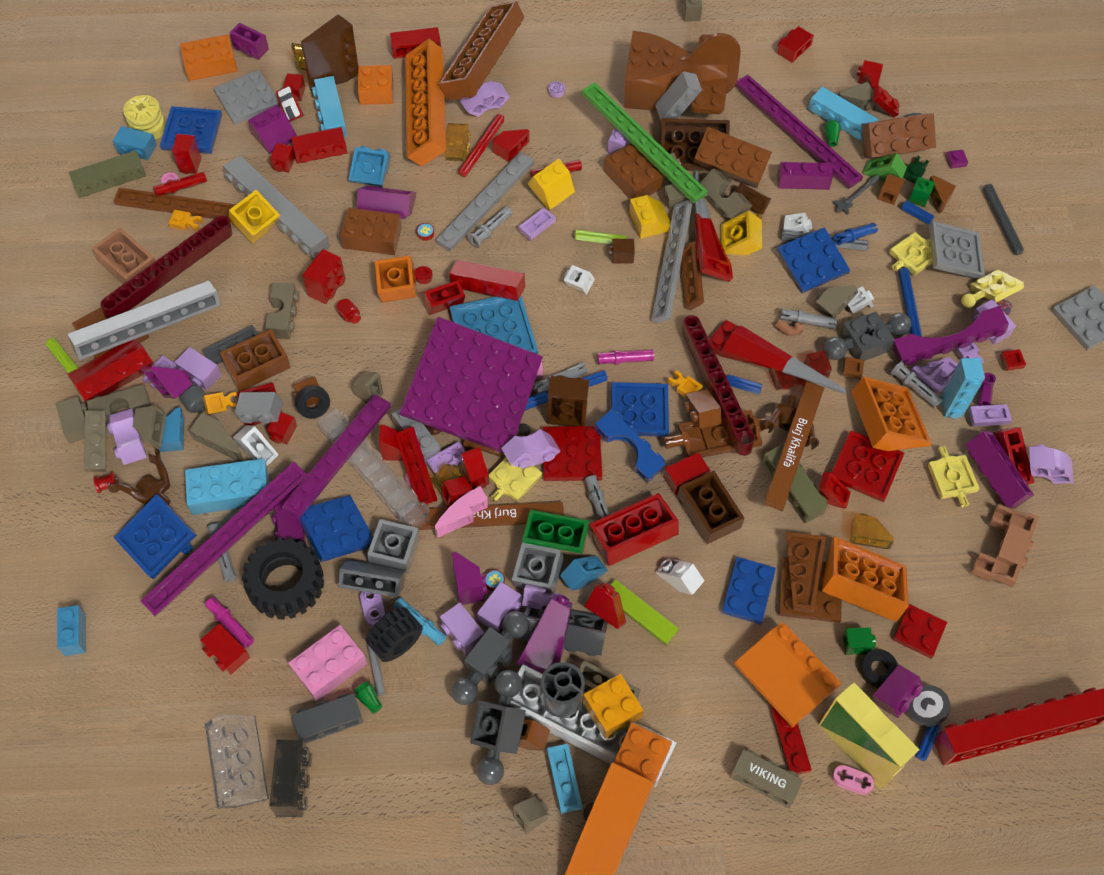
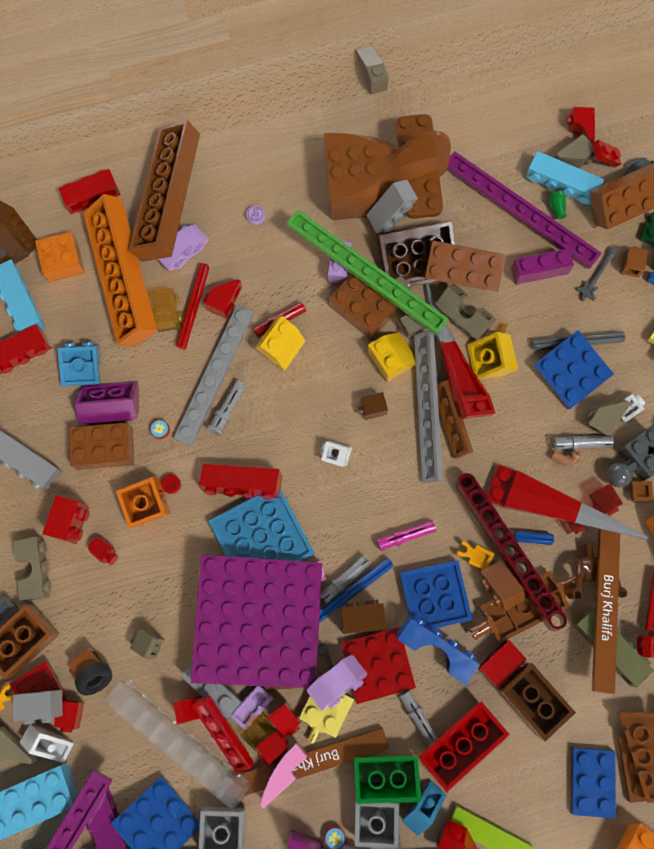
camera: 10 degrees left, 15 degrees up
(336, 457) = (135, 748): magenta plate -> none
(442, 297) = (200, 513): red brick -> none
(537, 224) = (275, 393): lavender plate -> none
(597, 237) = (345, 393): lime axle -> none
(680, 575) = (521, 786): white slope -> none
(758, 200) = (498, 308): reddish brown plate -> none
(795, 44) = (495, 99): red brick -> none
(797, 223) = (546, 327): white bracket -> none
(851, 235) = (607, 332): blue pin -> none
(885, 165) = (622, 236): bright green slope -> none

